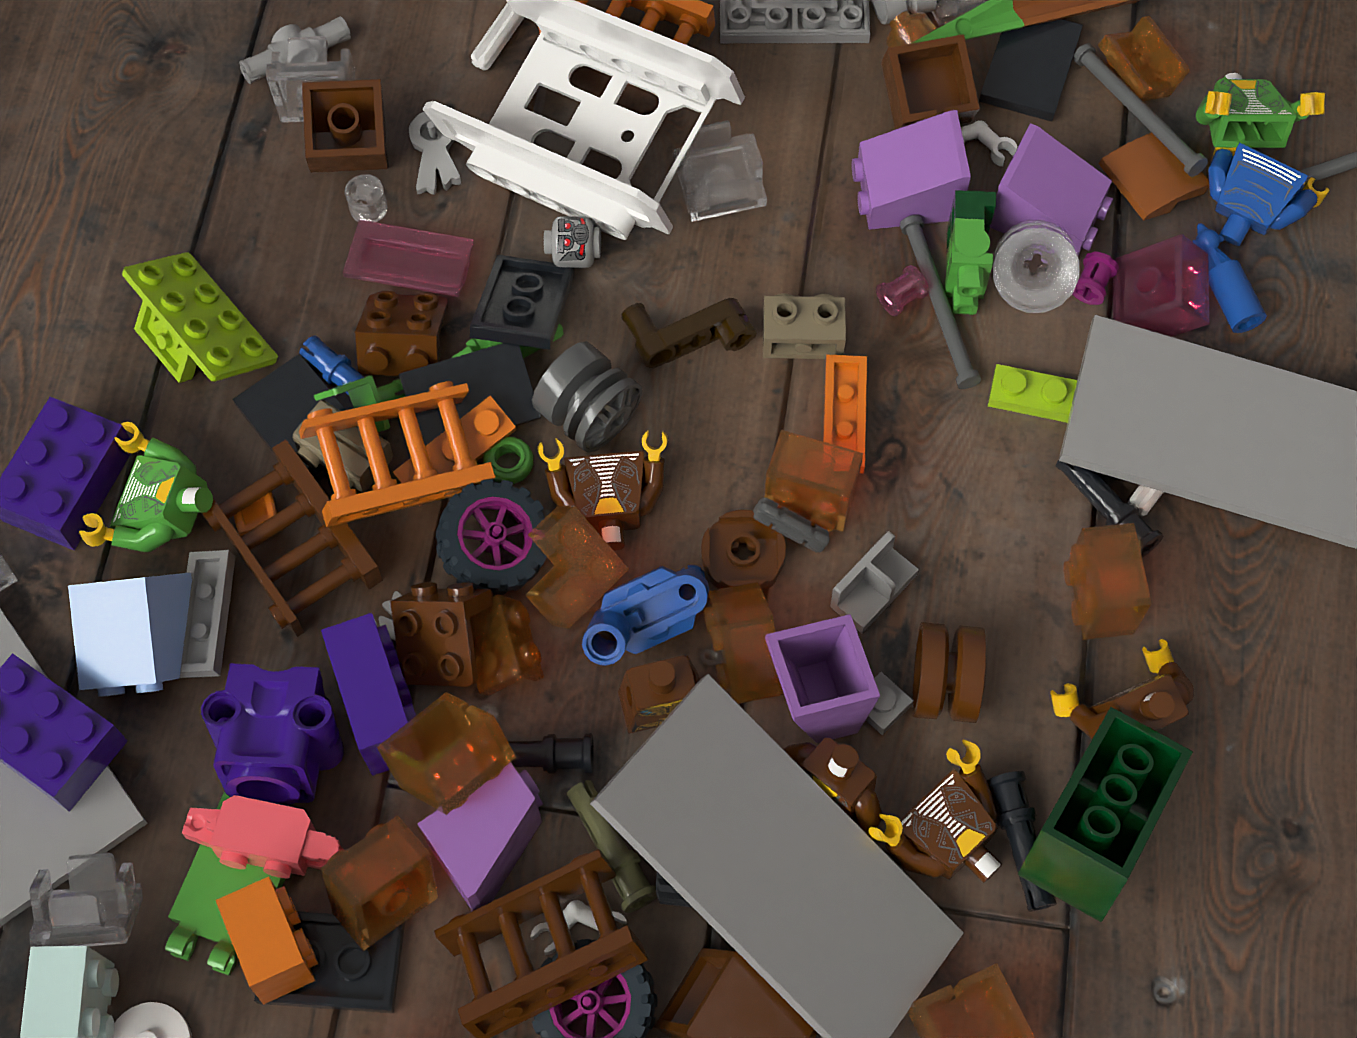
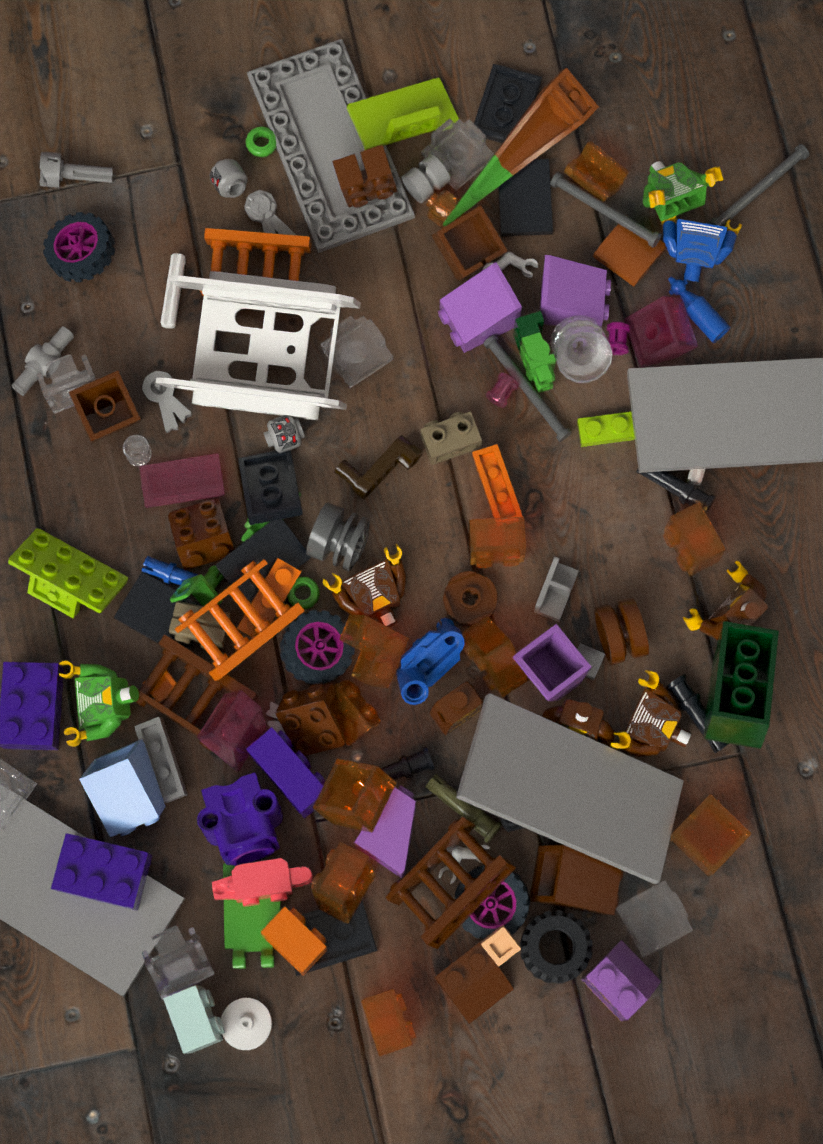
camera: 20 degrees left, 10 degrees up
(318, 598) = (233, 728): none -> clear pink slope
(791, 525) = (493, 572): dark grey axle -> none

